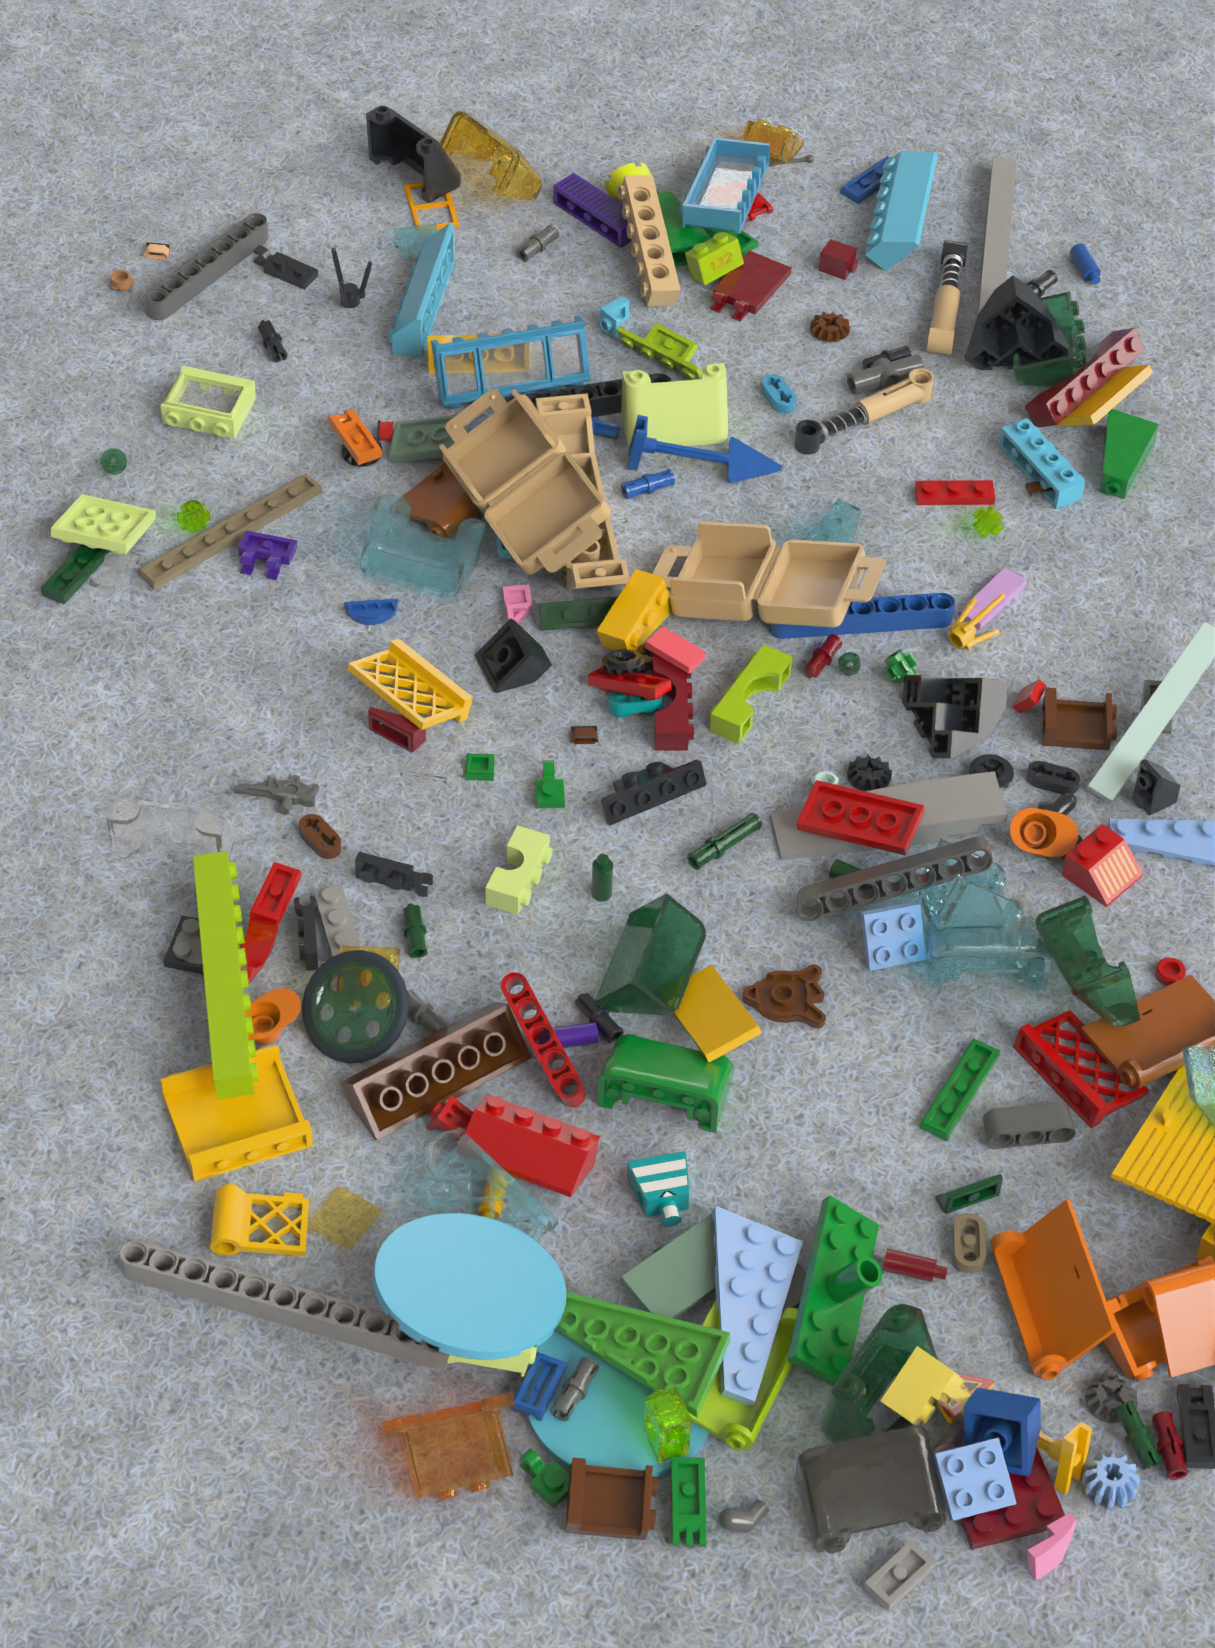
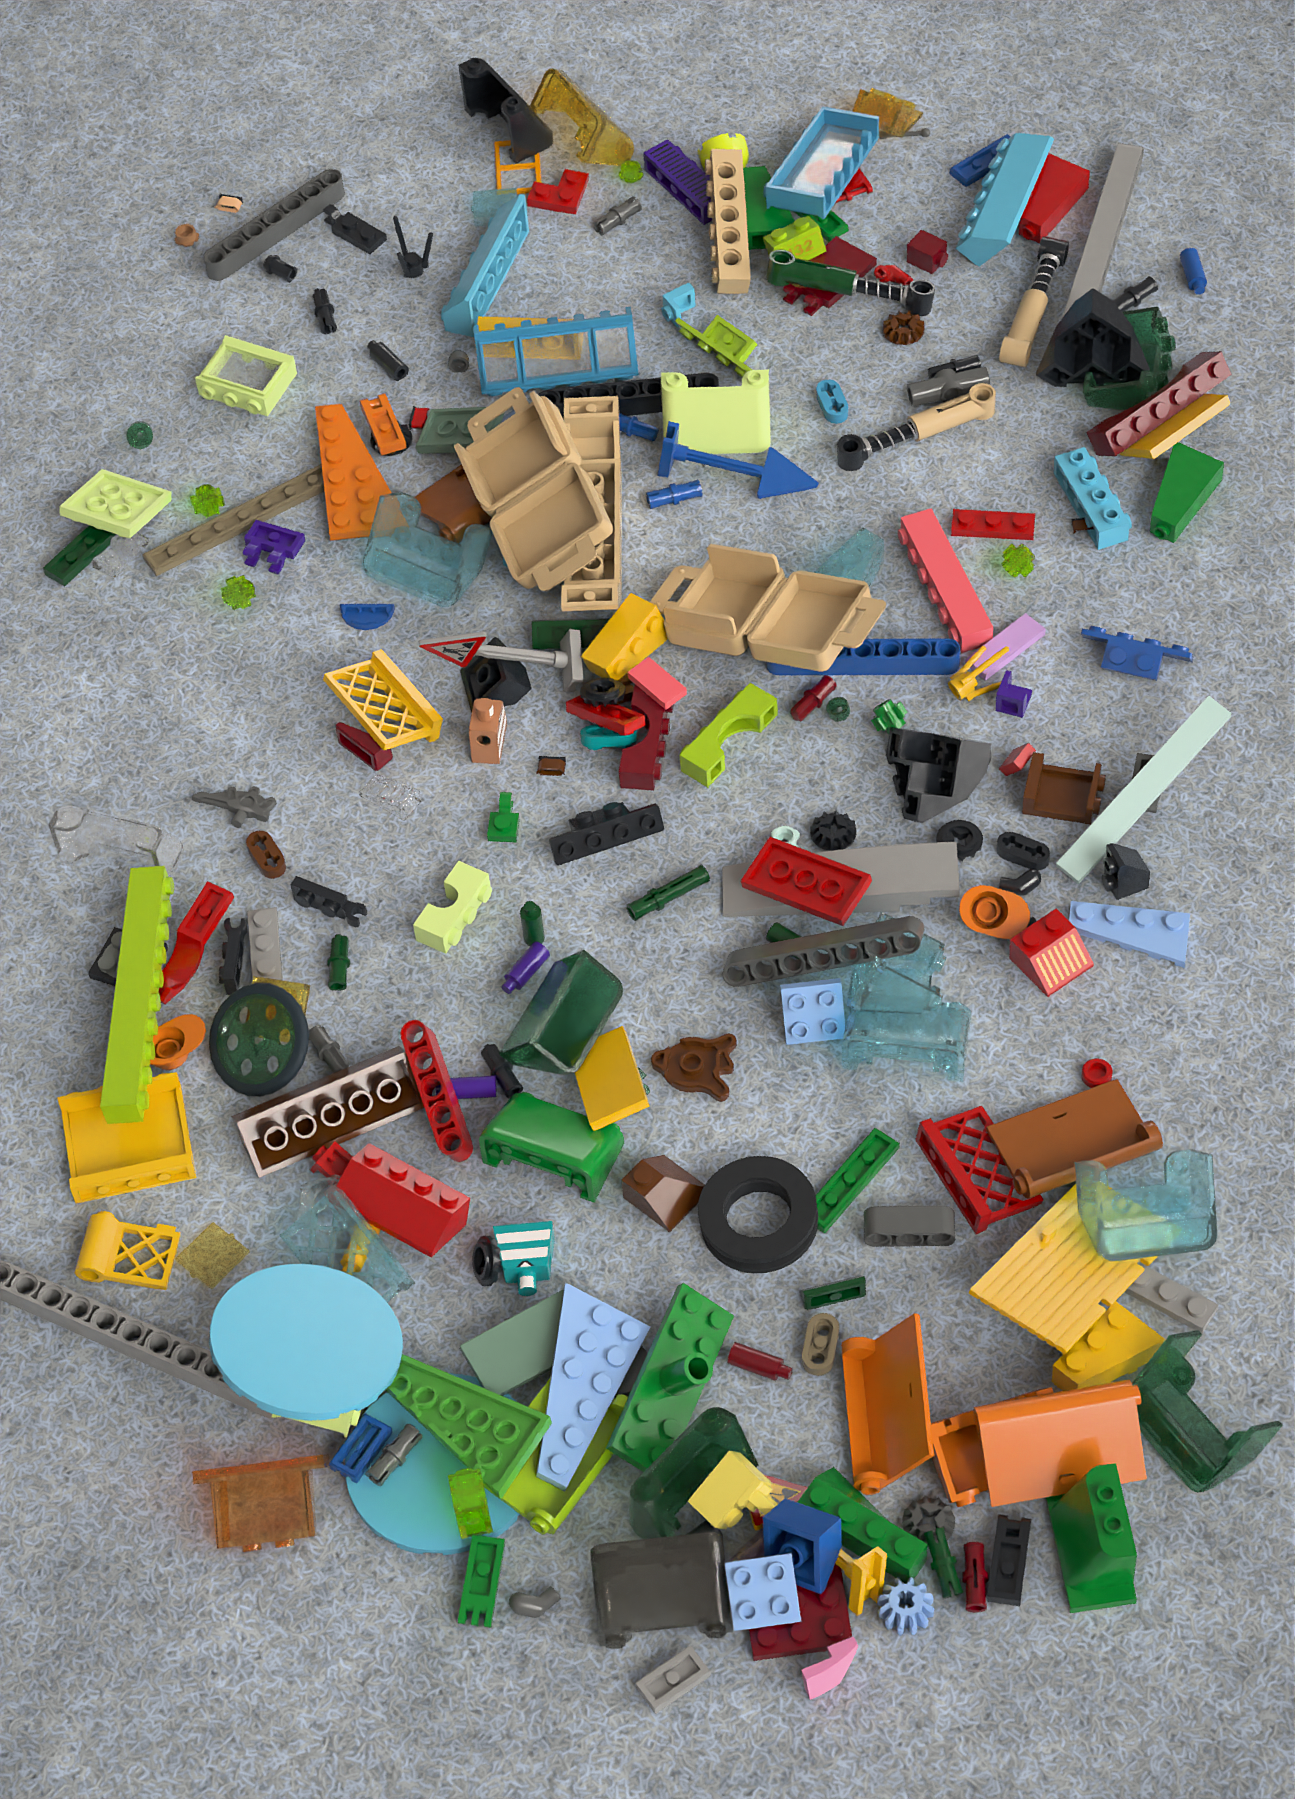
camera: 15 degrees right, 5 degrees up
(219, 304) = (280, 268): none -> black pin
(242, 597) = (238, 592): none -> clear neon green gear
(334, 493) = (349, 475): none -> orange wing
(344, 381) = (387, 360): none -> black cylinder
(413, 378) = (458, 361): none -> dark grey hinge
(479, 767) = (439, 792): green tile -> none
(482, 230) = (560, 198): none -> red plate
(484, 627) = (462, 648): none -> light grey piece
(517, 602) = (513, 617): bright pink slope -> none
(518, 695) = (487, 720): none -> nougat torso
(542, 204) = (630, 171): none -> clear neon green plate
(548, 1481) = (354, 1545): green plate -> none
(601, 920) = (525, 967): none -> dark purple cylinder
(610, 1501) = (404, 1571): reddish brown panel -> none
(626, 1195) = (486, 1260): none -> black gear
(713, 279) = (786, 269): none -> piece
(782, 1116) = (662, 1190): none -> reddish brown slope
(809, 281) = (892, 274): none -> red arm
(873, 1163) = (766, 1252): none -> black tyre
(923, 542) = (945, 580): none -> coral brick
(945, 205) = (1052, 197): none -> red slope
(1010, 644) = (1012, 698): none -> dark purple panel
(1058, 1409) = (864, 1525): none -> green wedge
(1074, 949) = (988, 1044): clear green windscreen -> none
(1114, 598) = (1134, 656): none -> blue bracket

